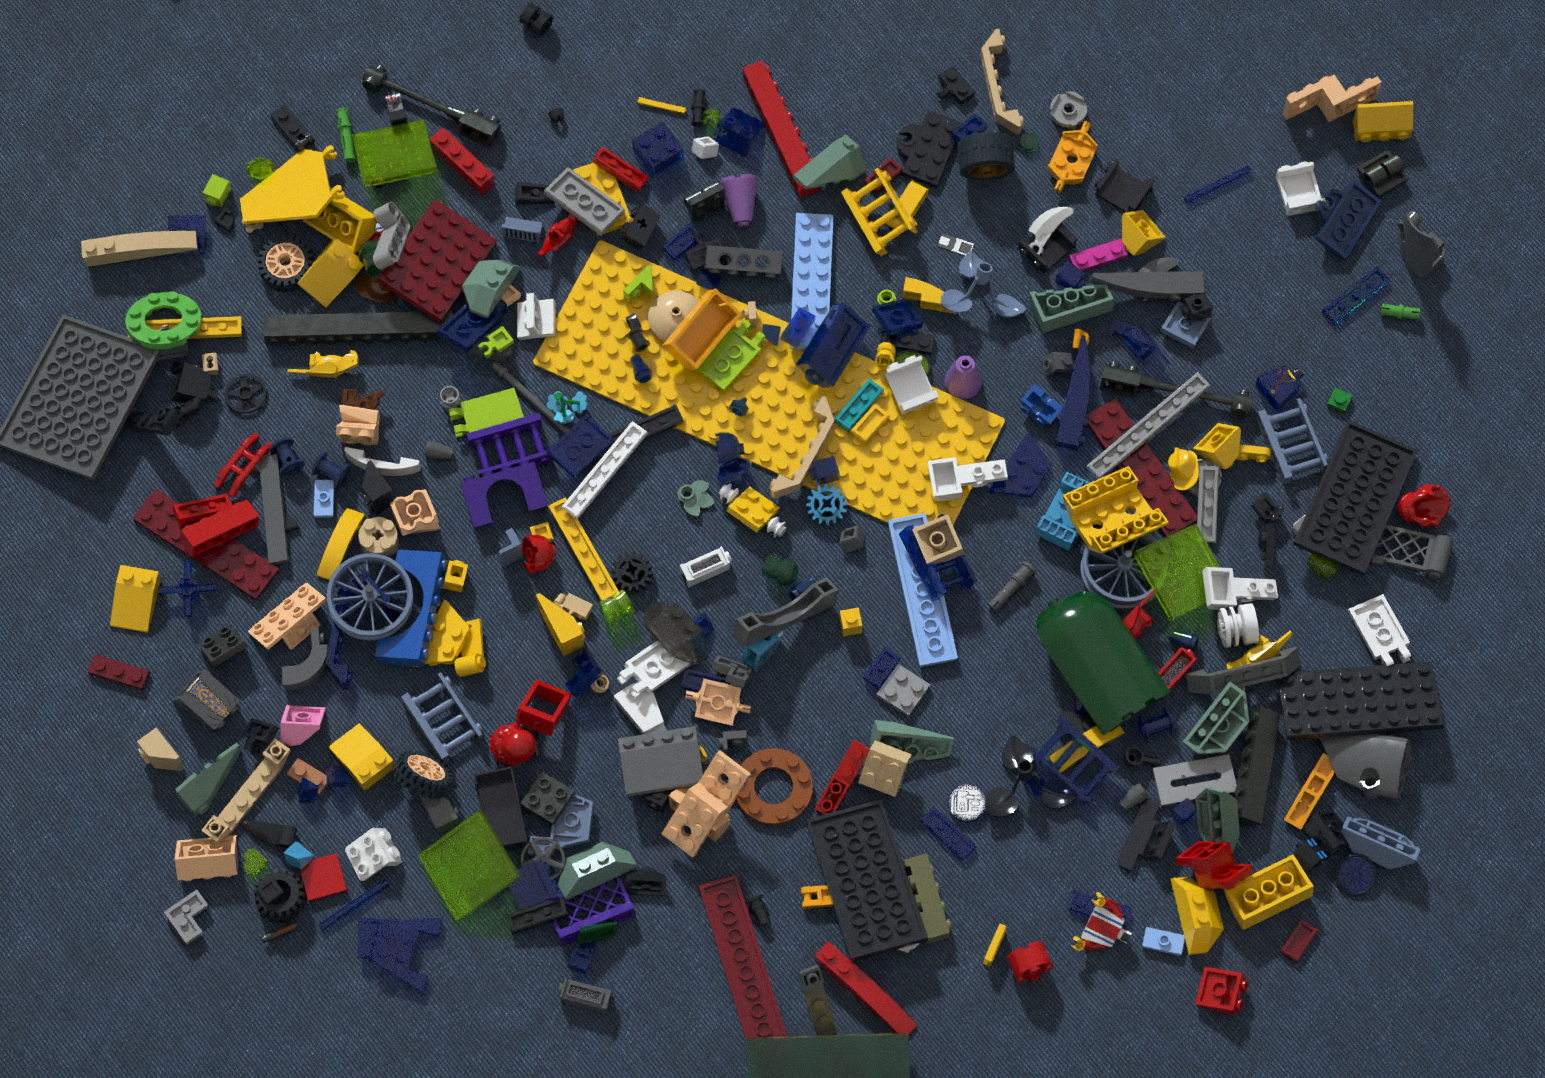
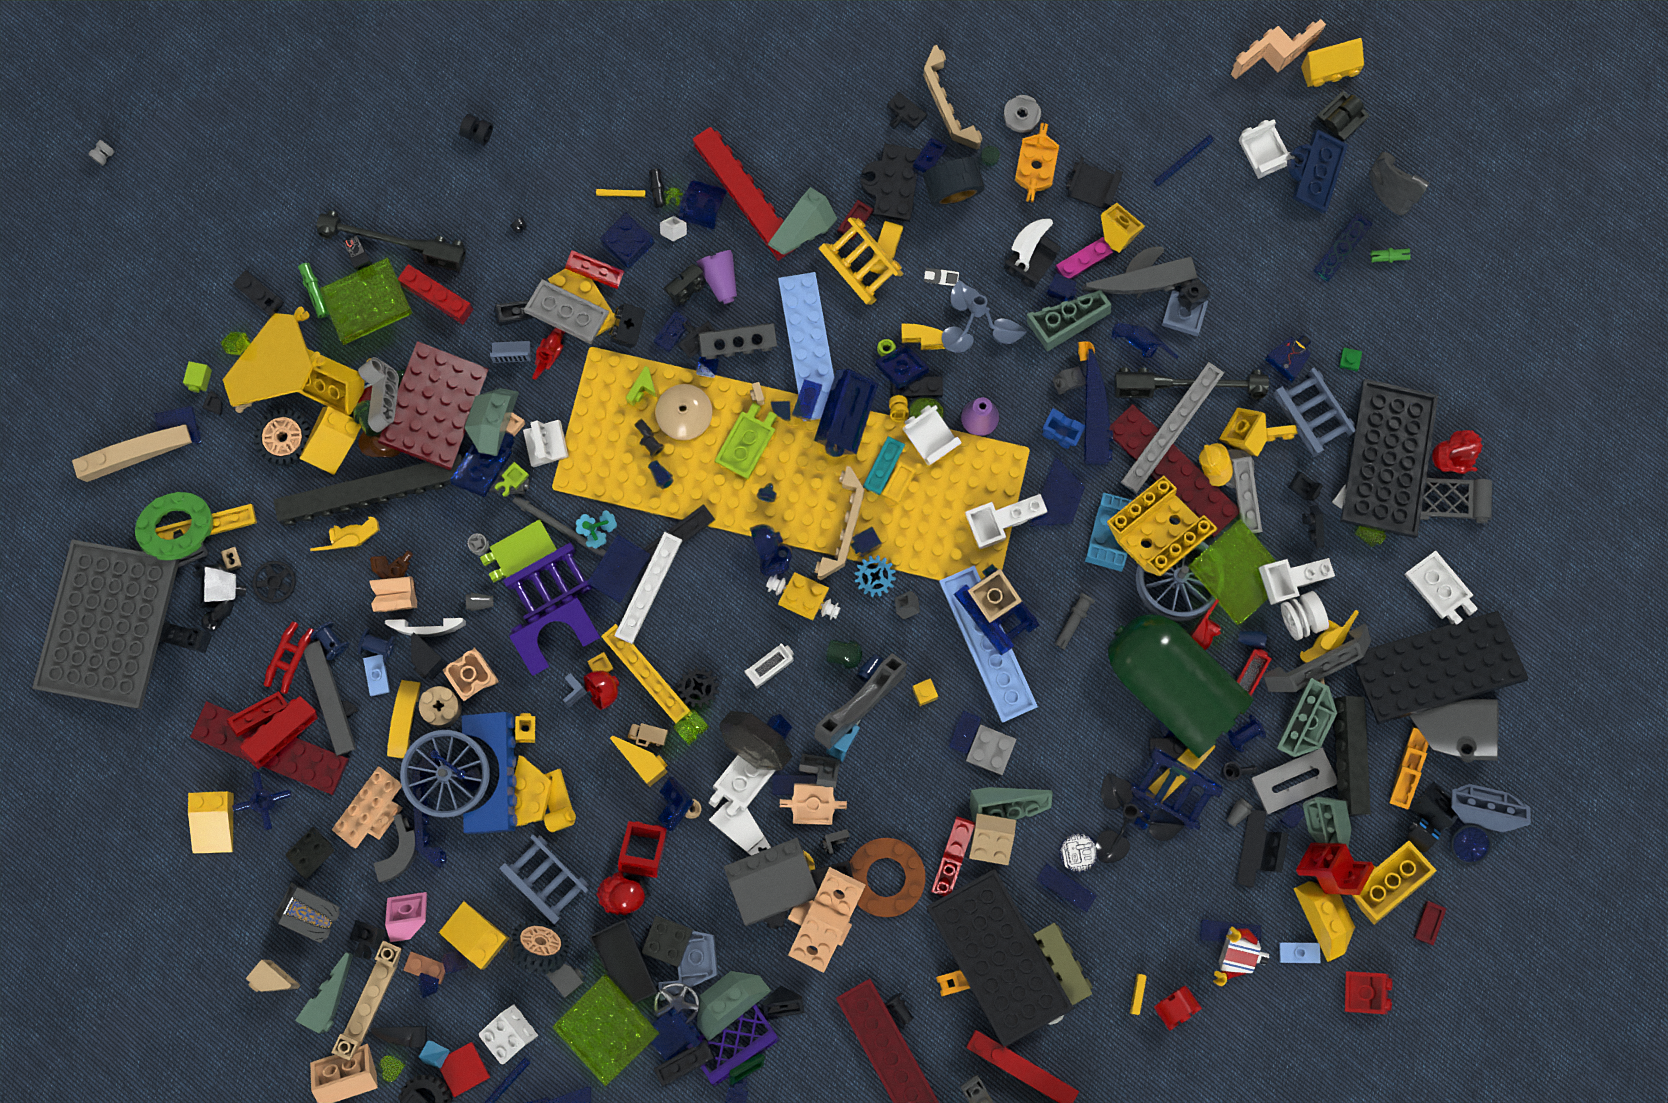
camera: 10 degrees left, 10 degrees up
(118, 672) = (212, 900): dark red plate -> none
(698, 499) = (746, 594): sand green plate -> none
(702, 330) = (713, 423): light orange piece -> none

